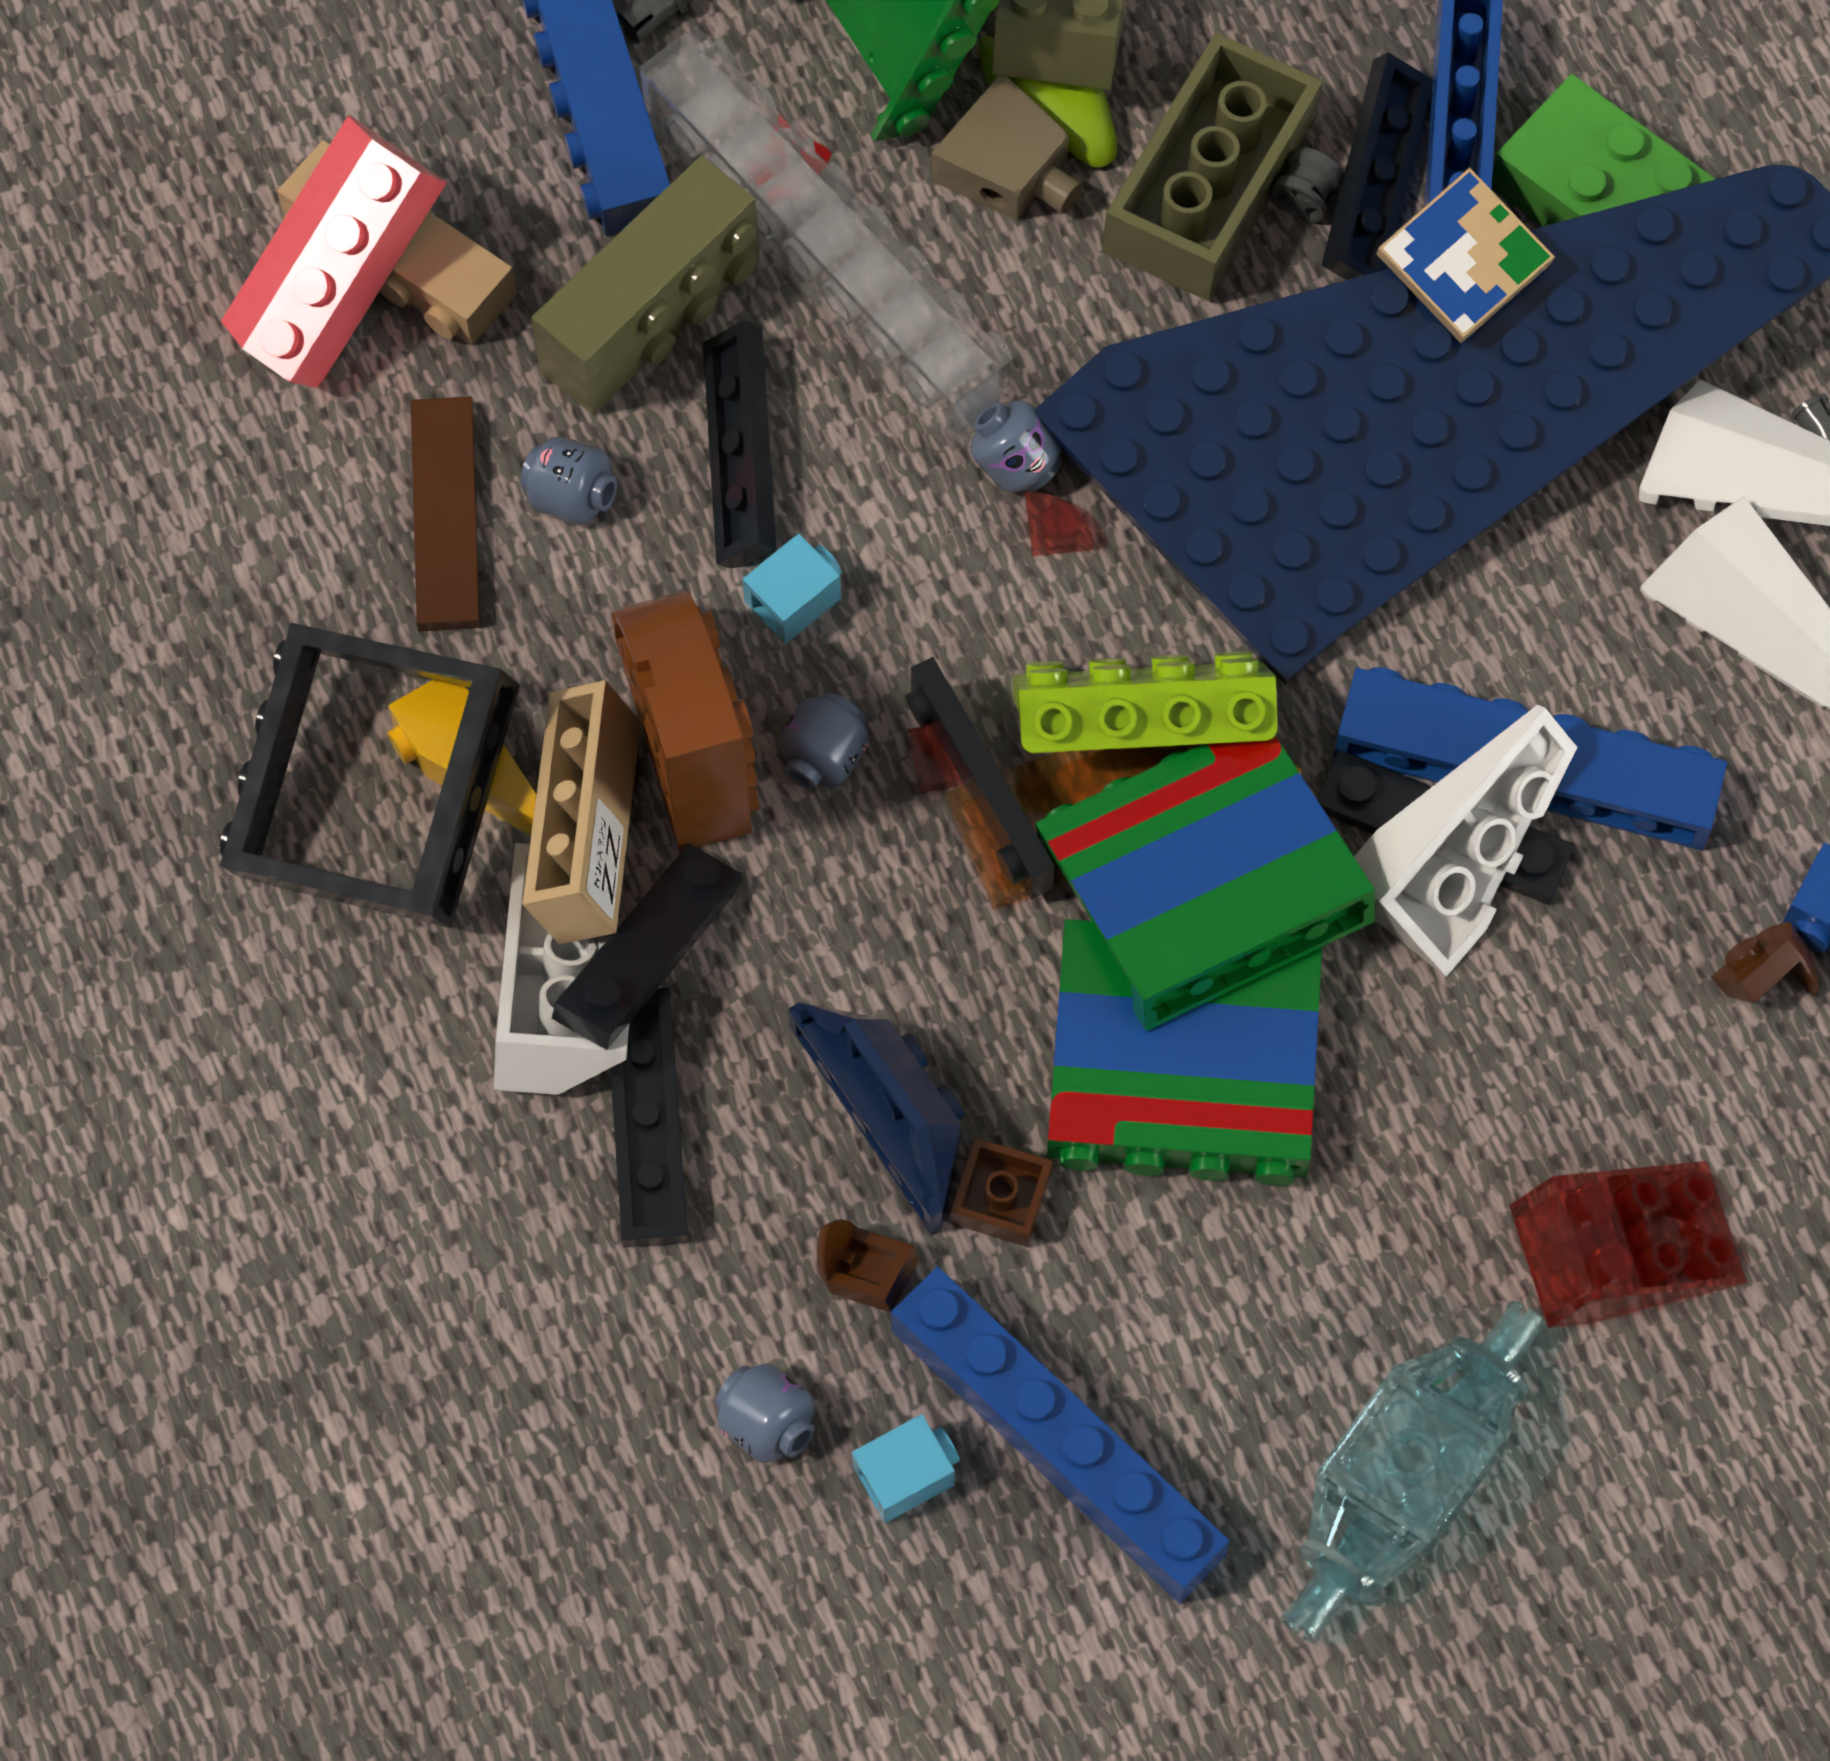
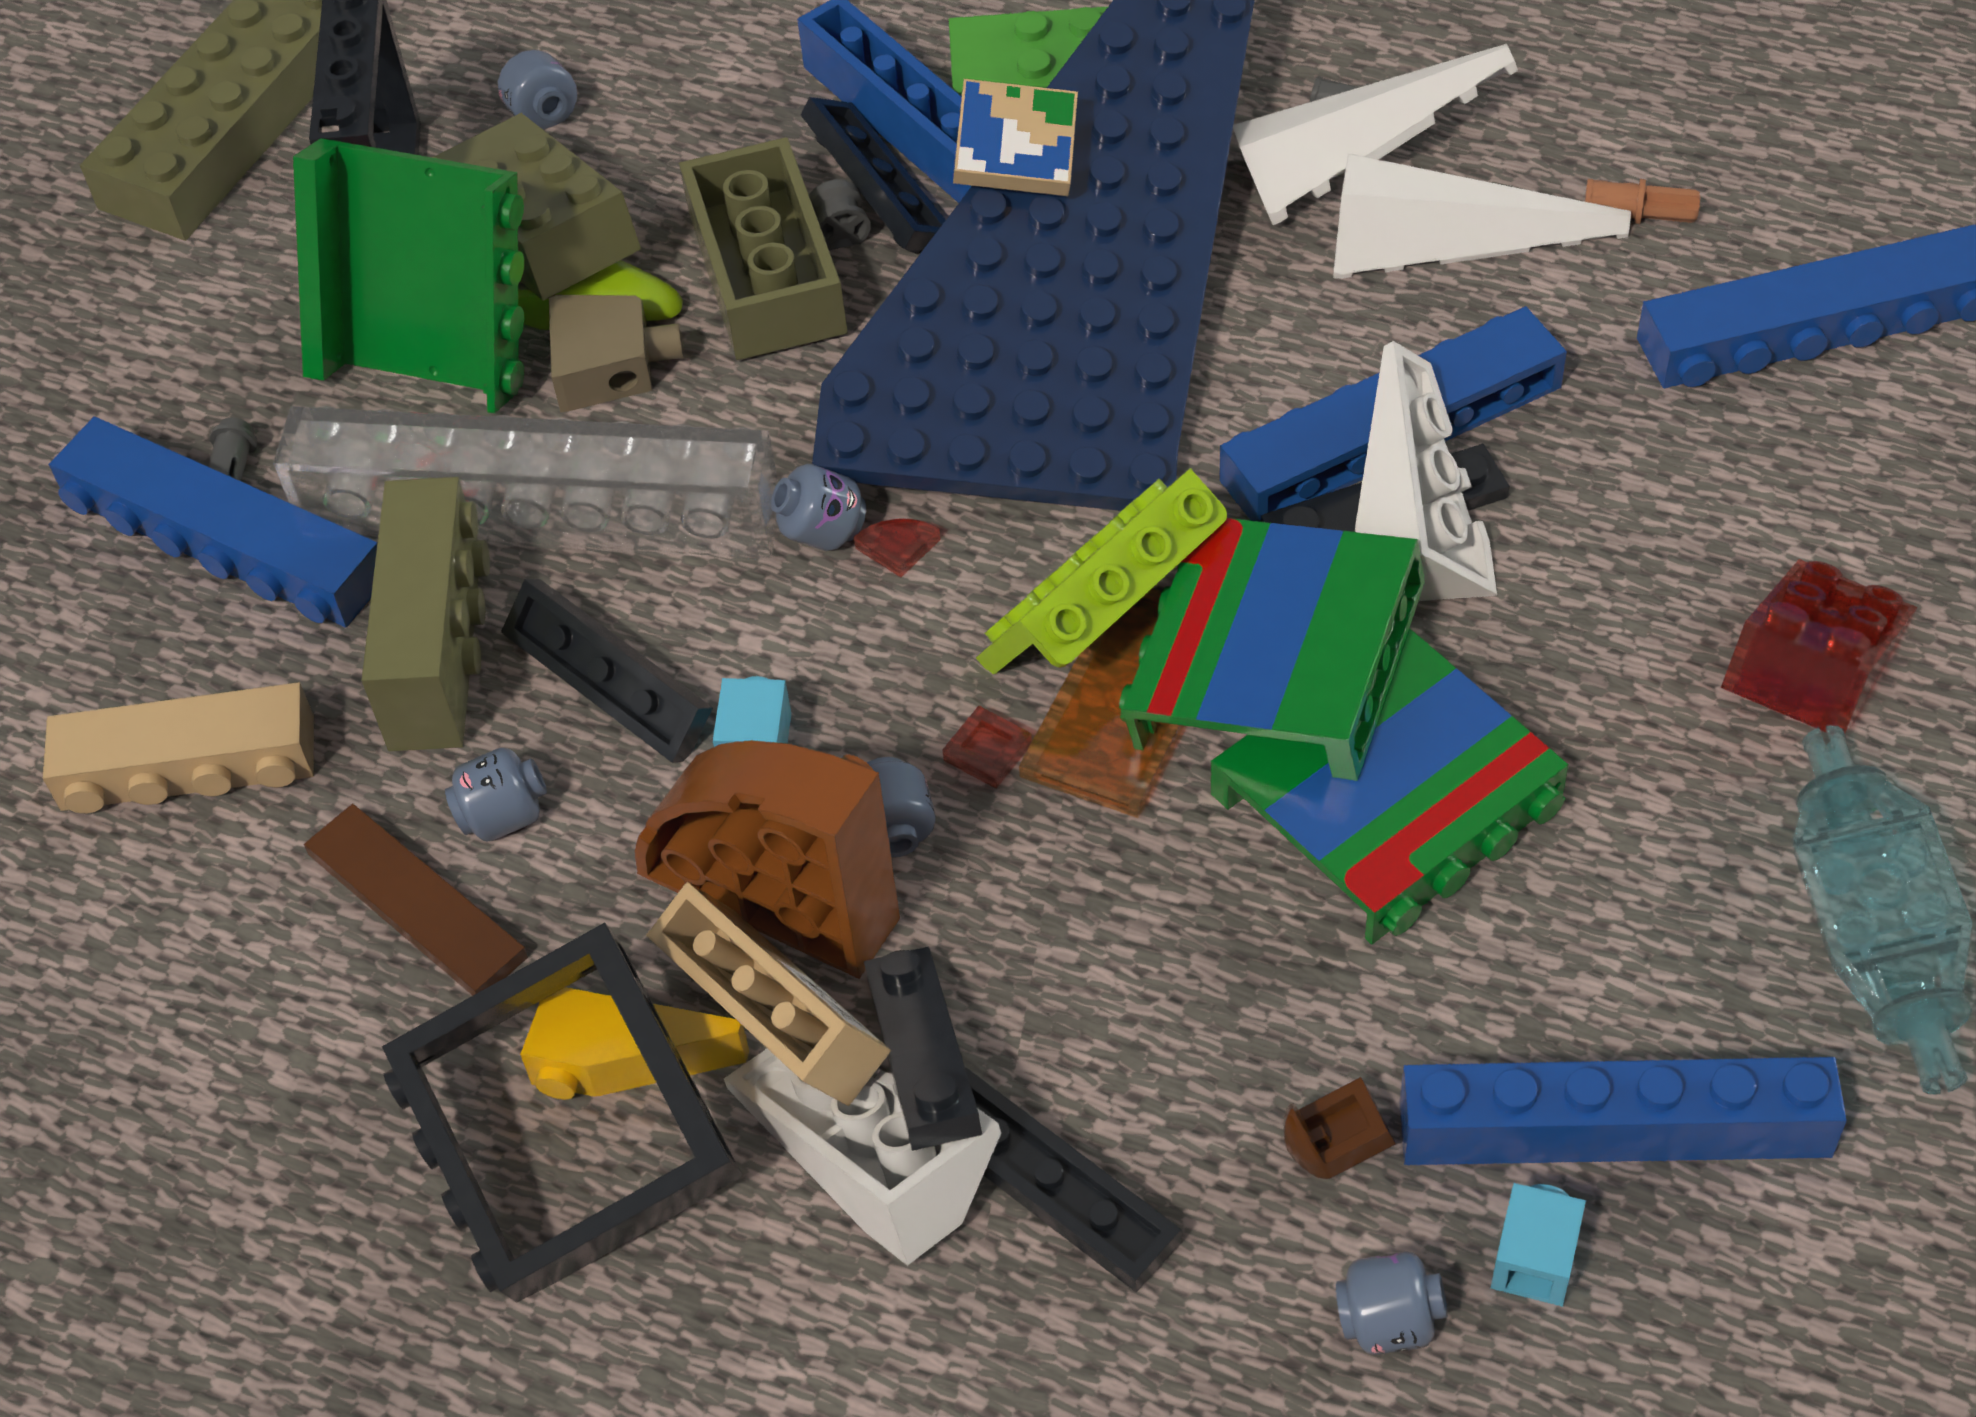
camera: 40 degrees left, 15 degrees down
(331, 254) = (135, 778): coral slope -> none
(889, 1100) = (1221, 1000): dark blue wedge -> none
(1001, 1192) = (1374, 989): reddish brown piece -> none
(1021, 851) = (1042, 724): black plate -> none
(1763, 960) = (1692, 408): reddish brown plate -> none

